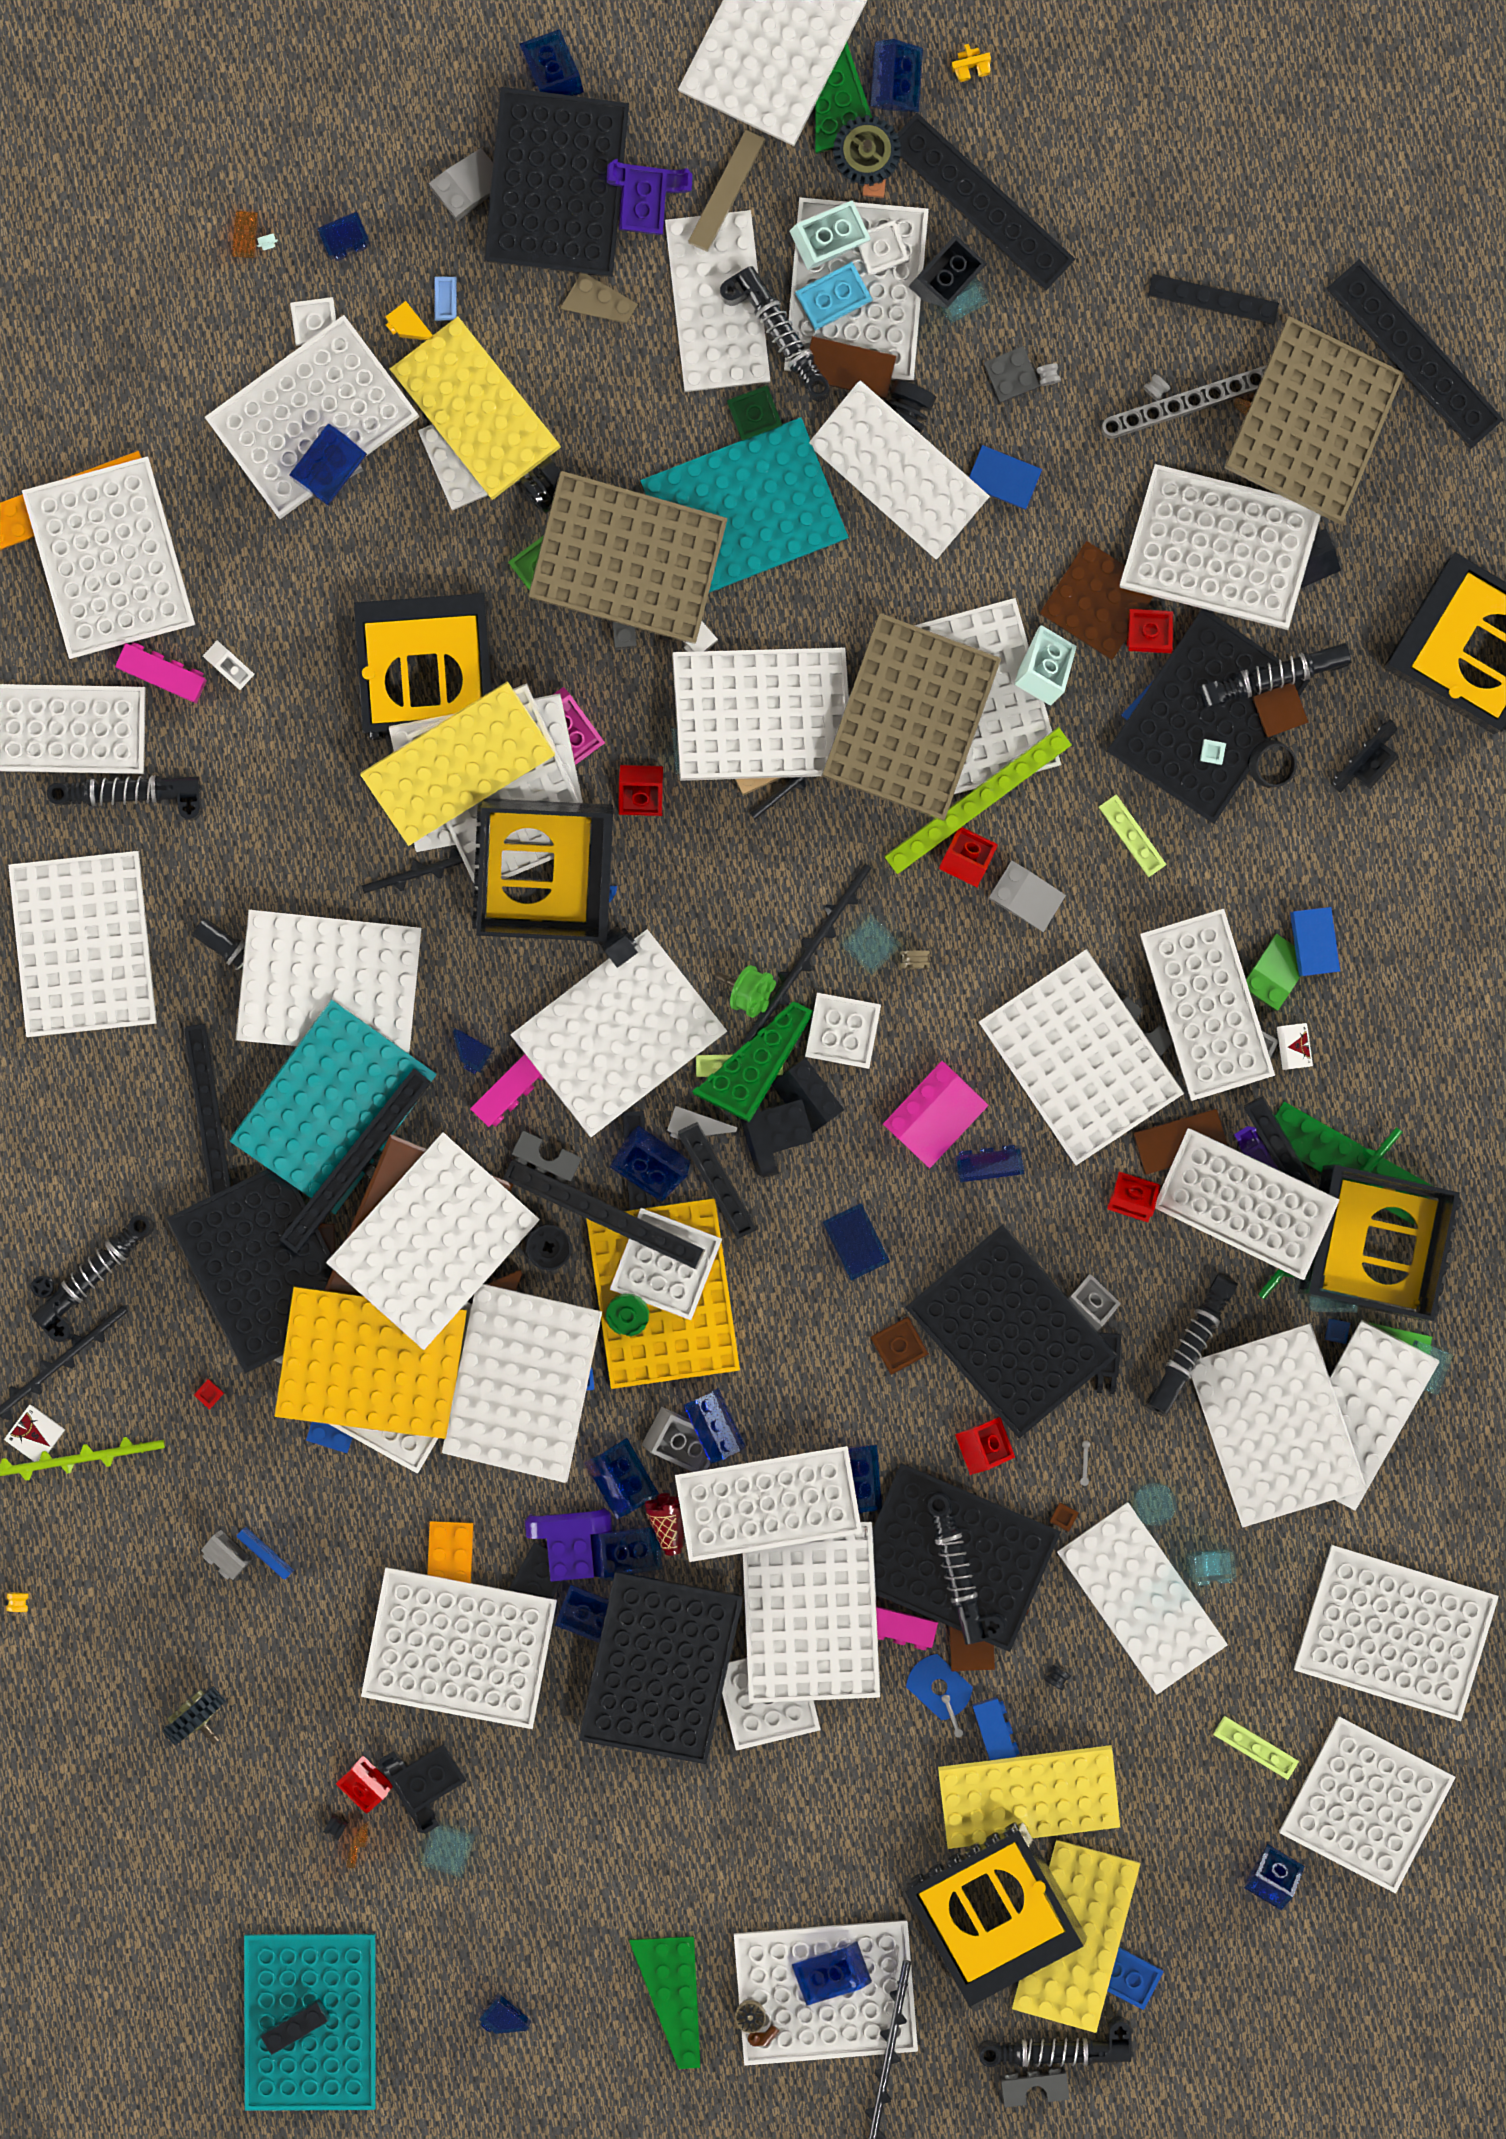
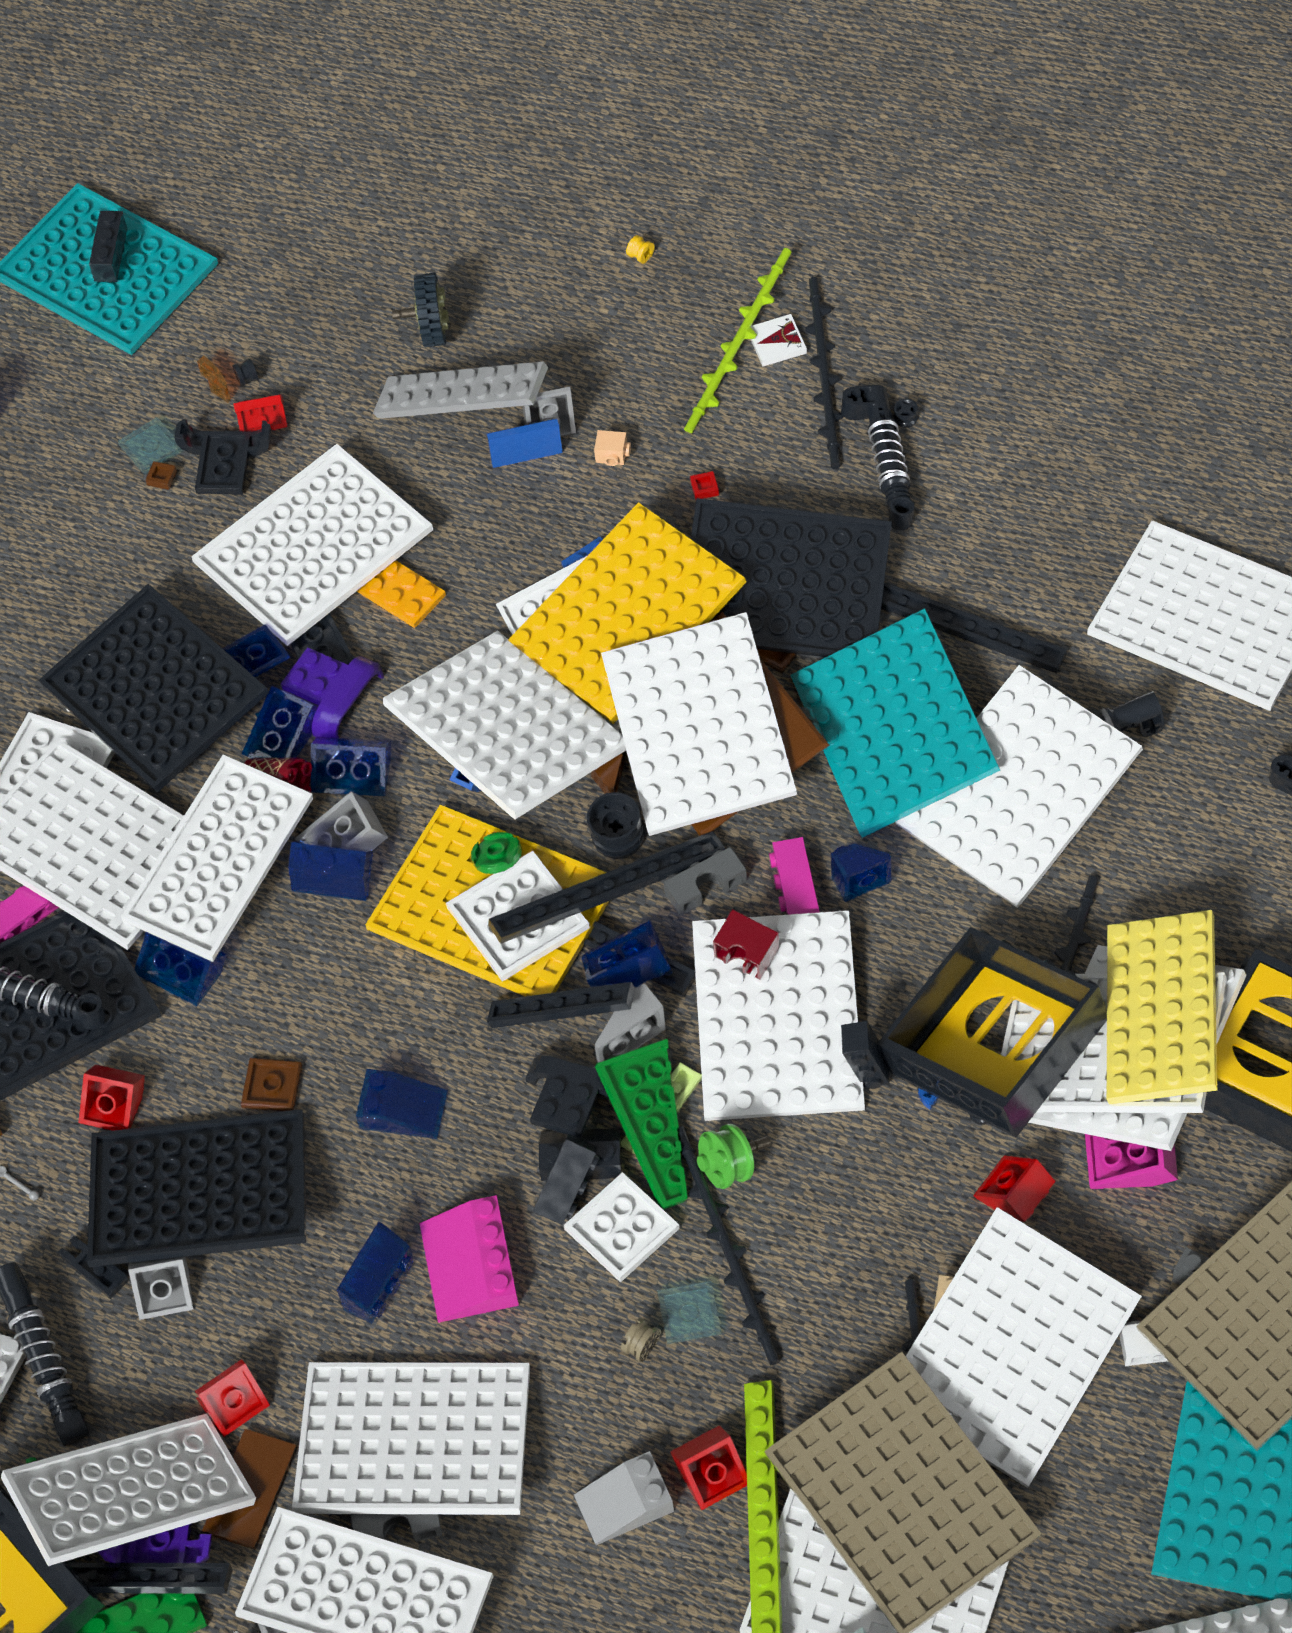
camera: 130 degrees right, 30 degrees down
(221, 1487) = (611, 447): none -> light nougat brick
(257, 1631) = (461, 390): none -> light grey plate
(355, 1161) = (827, 709): black plate -> none
(470, 1818) = (161, 475): none -> reddish brown plate
(588, 1080) = (747, 941): none -> dark red piece
(841, 1084) = (566, 1179): none -> black brick

